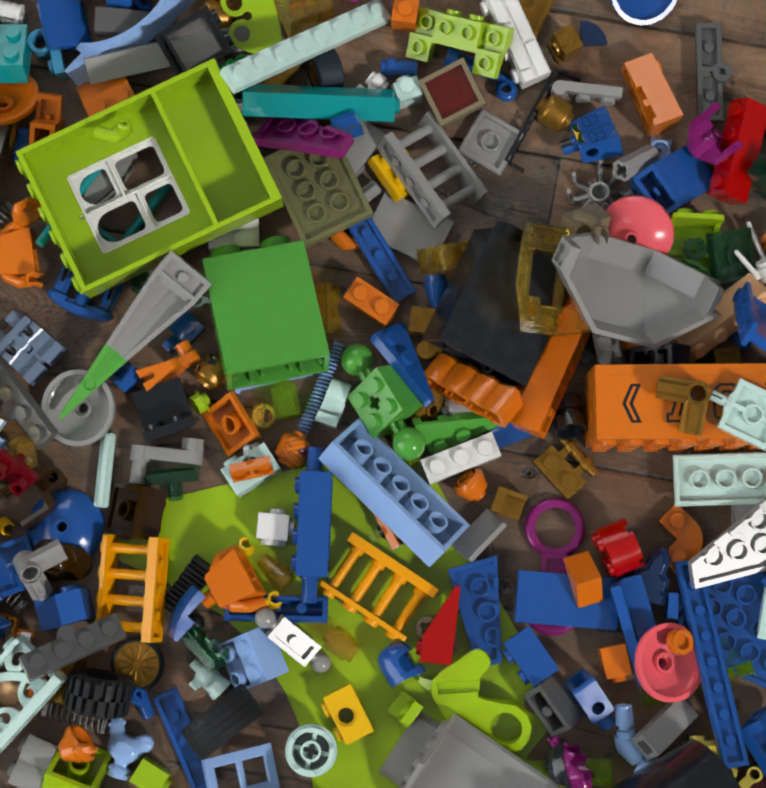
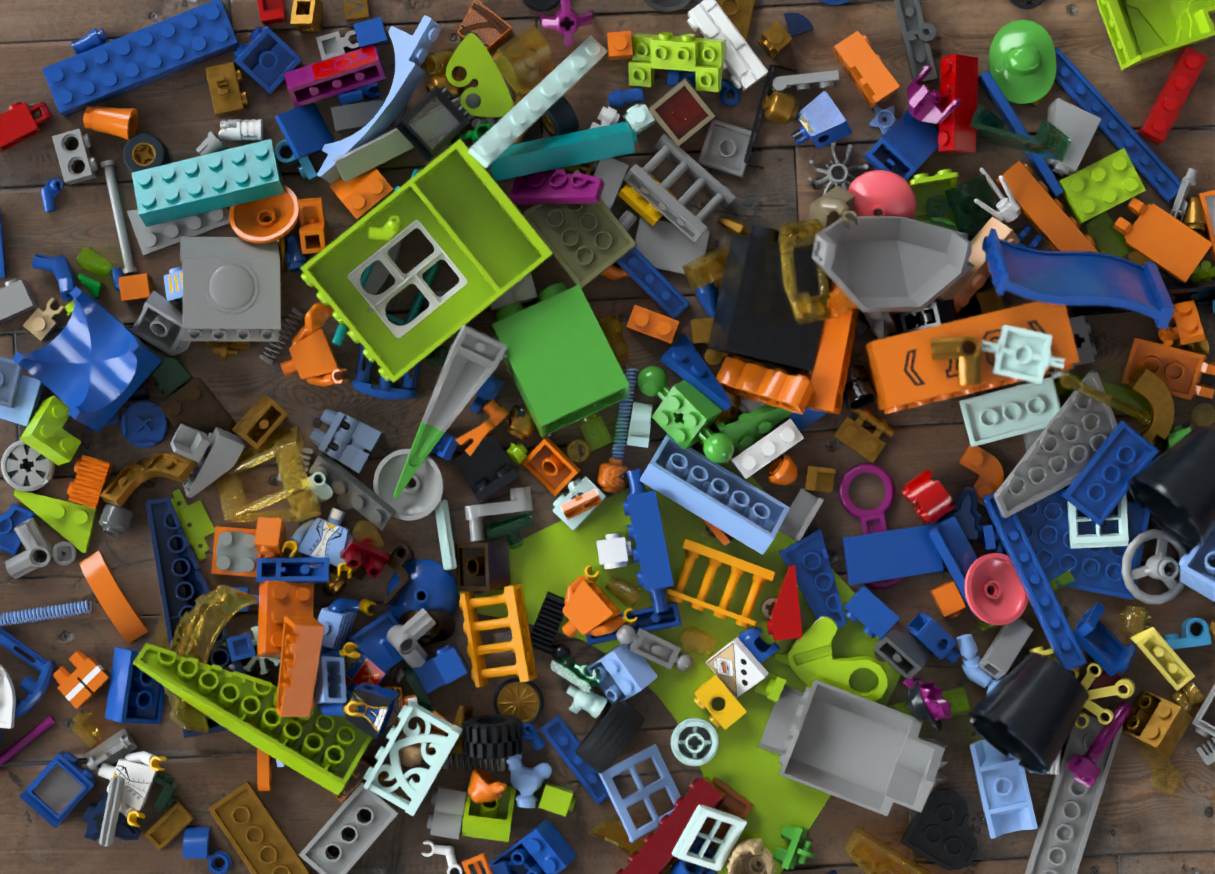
camera: 20 degrees left, 5 degrees up
(39, 638) = (424, 699): none -> clear green tile
(71, 646) = (459, 701): dark grey hinge -> none
(179, 621) = (549, 654): blue slope -> none
(348, 123) = (593, 166): blue tile -> none
(375, 681) = (737, 667): none -> tile
(476, 220) = (733, 226): none -> pearl gold bar
(584, 579) = (903, 532): orange slope -> none
(635, 162) = (865, 138): light grey axle -> none
(680, 641) = (1002, 568): orange tile -> none

